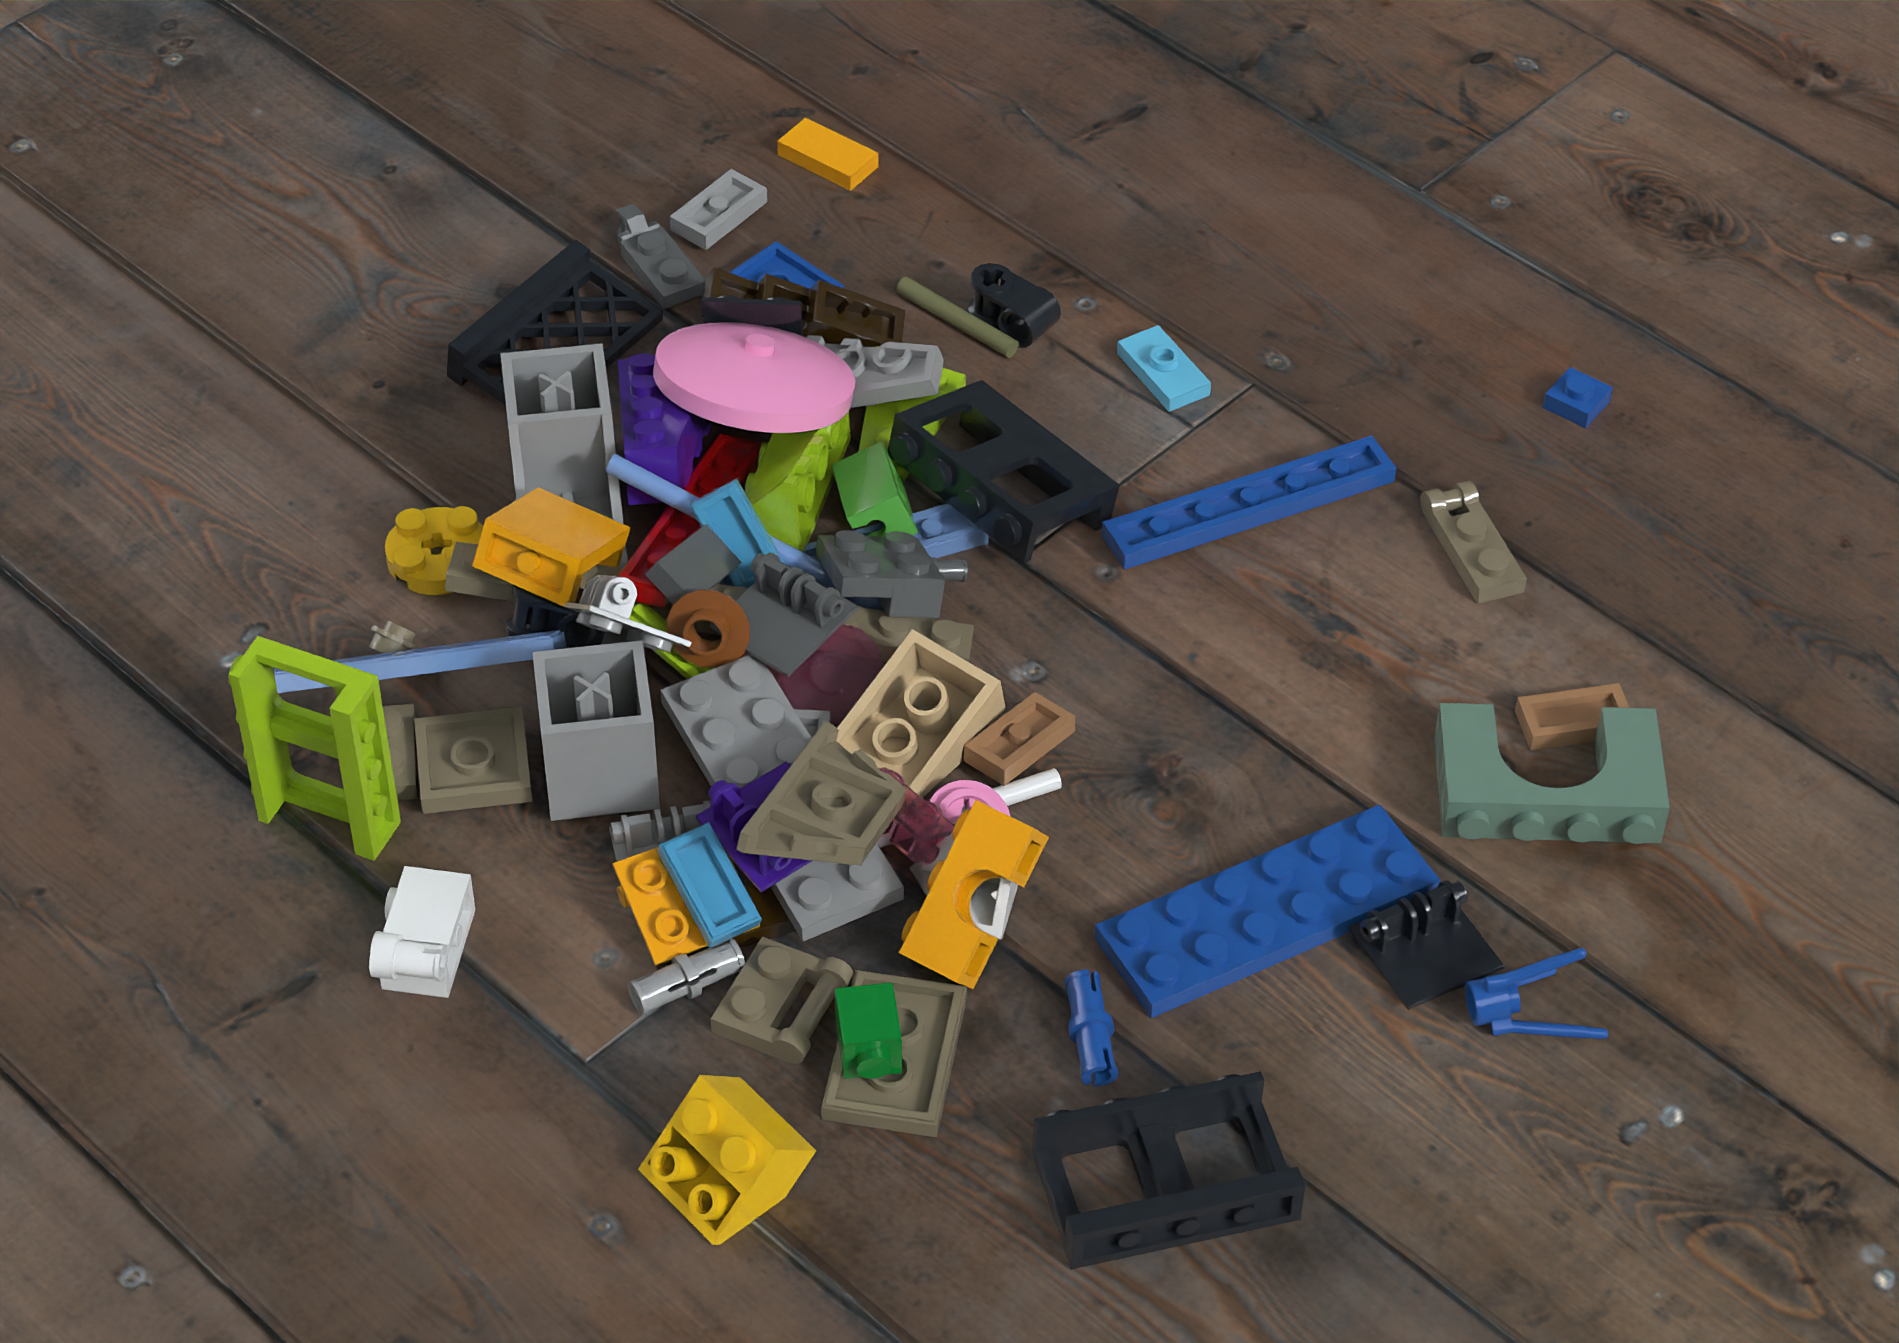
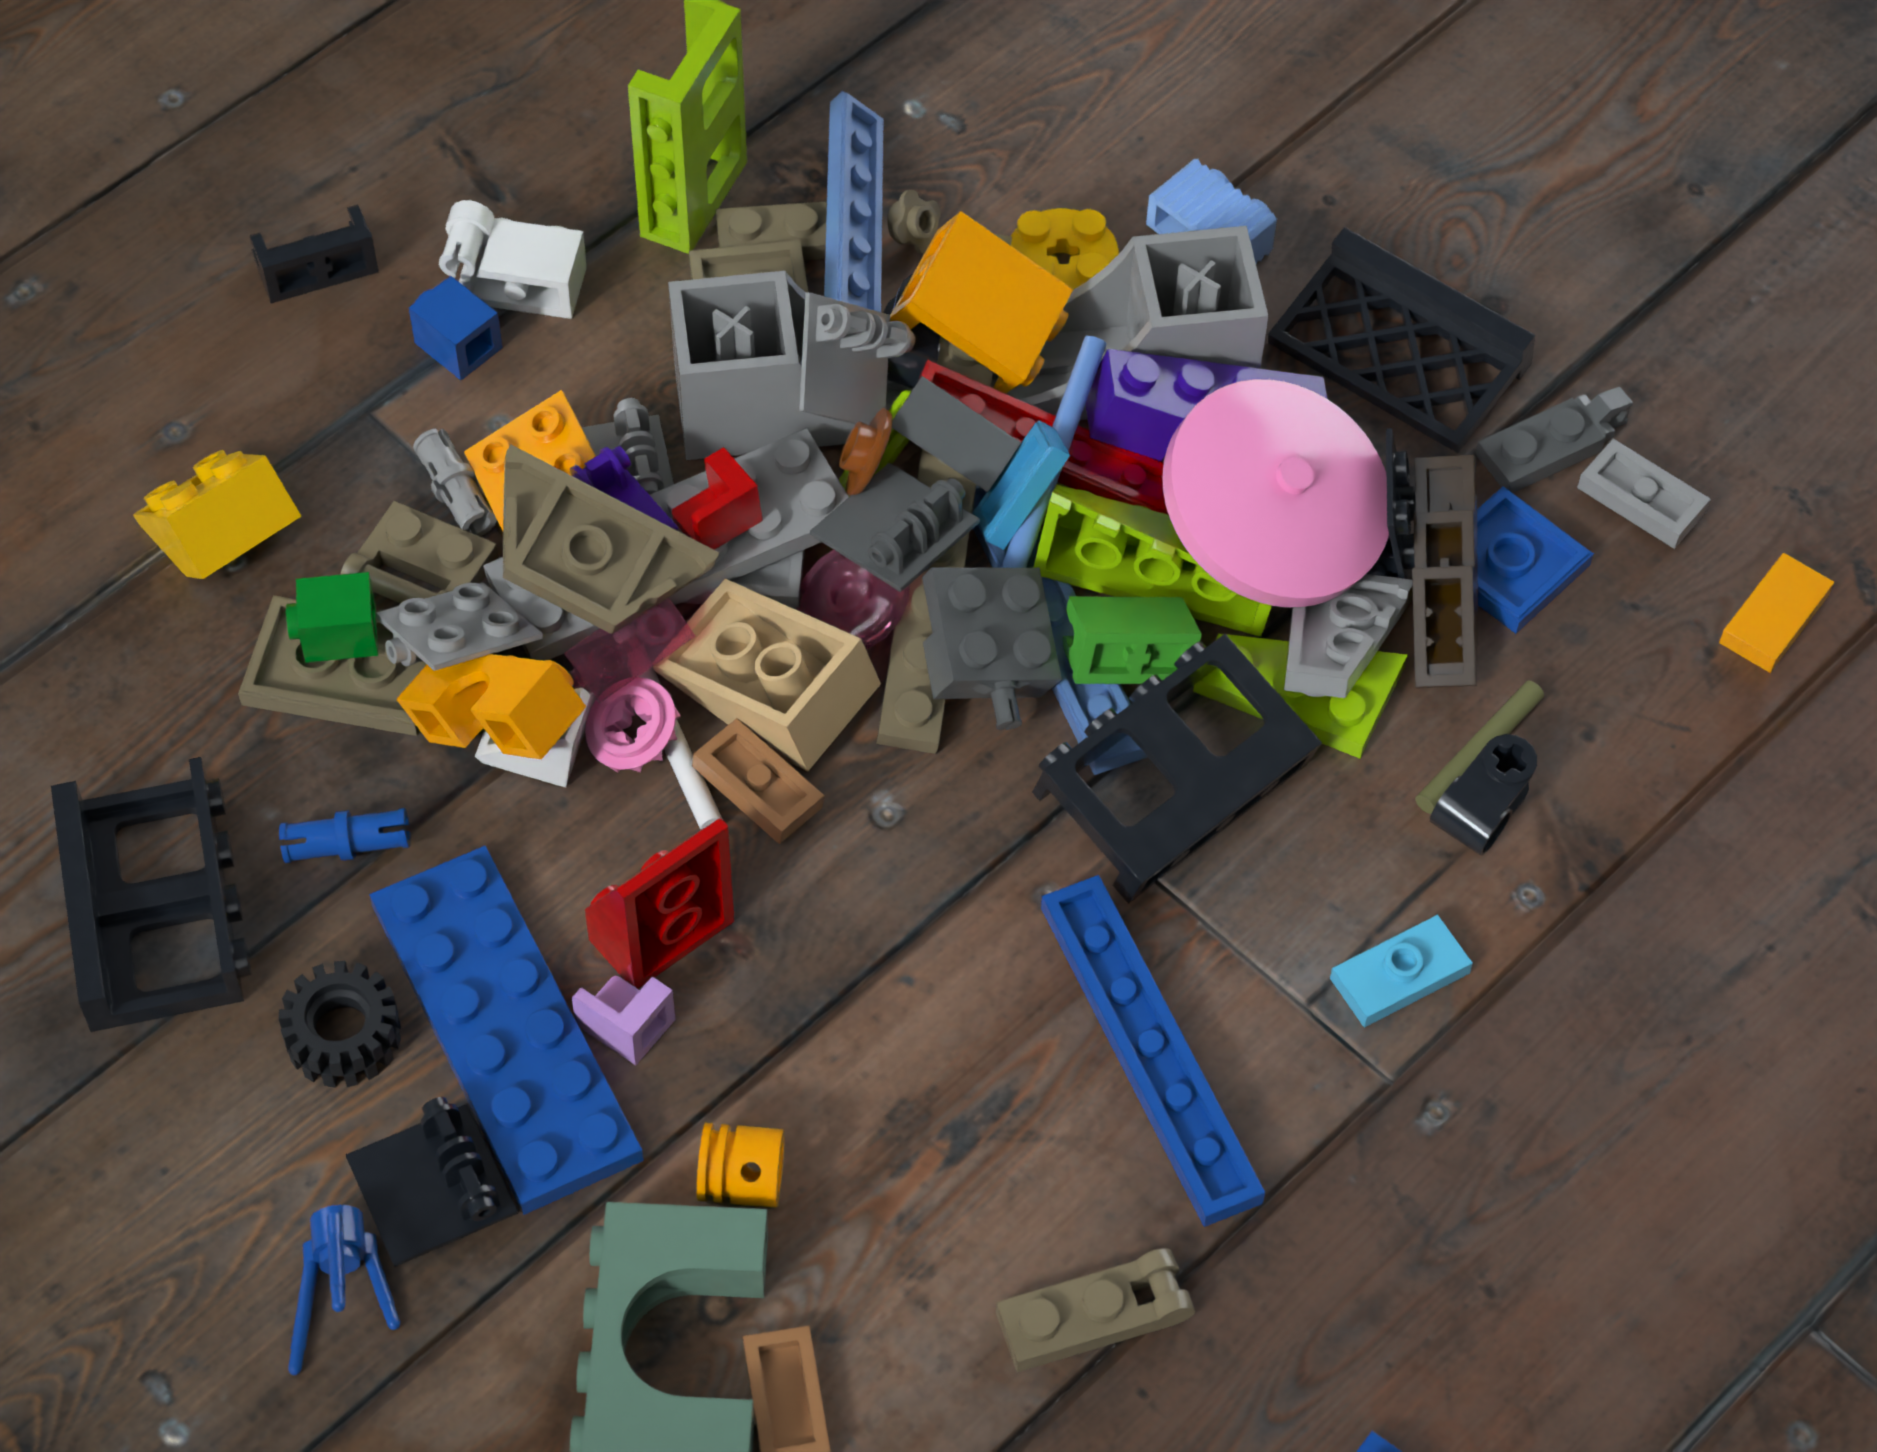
camera: 90 degrees right, 10 degrees up
(387, 1109) = (316, 260): none -> black hinge
(413, 443) = (1207, 200): none -> light blue brick
(500, 980) = (455, 327): none -> blue brick
(709, 885) = (549, 442): dark azure tile -> none
(765, 726) = (722, 509): none -> red panel
(890, 927) = (454, 627): none -> light grey hinge
(1167, 765) = (666, 907): none -> red slope
(1258, 817) = (625, 1016): none -> lavender panel
(1291, 990) = (332, 992): none -> black tyre
(1391, 734) = (725, 1167): none -> light orange piece

